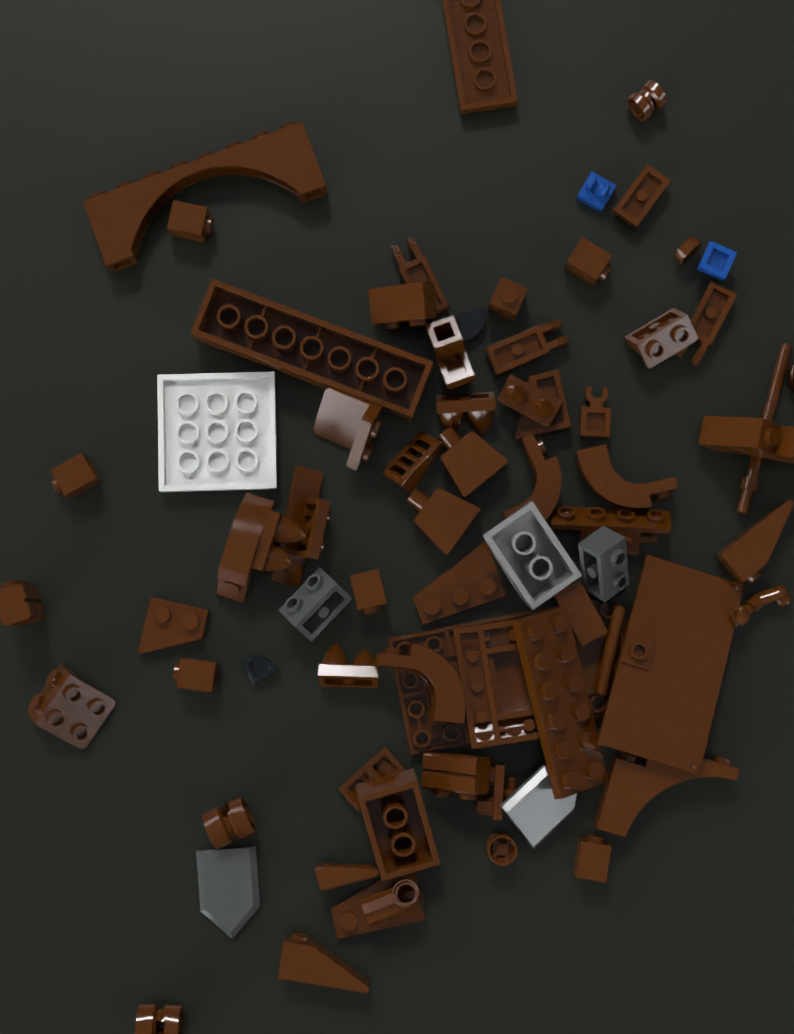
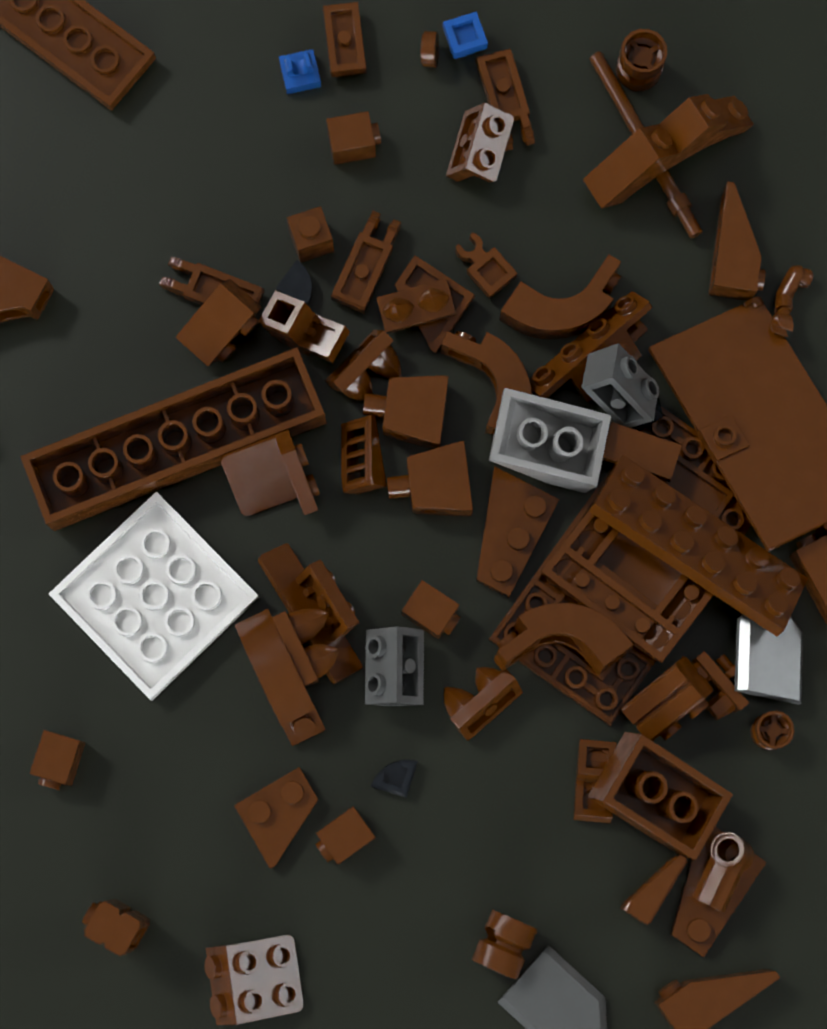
camera: 50 degrees left, 5 degrees down
(610, 650) = (698, 460): reddish brown bar -> none

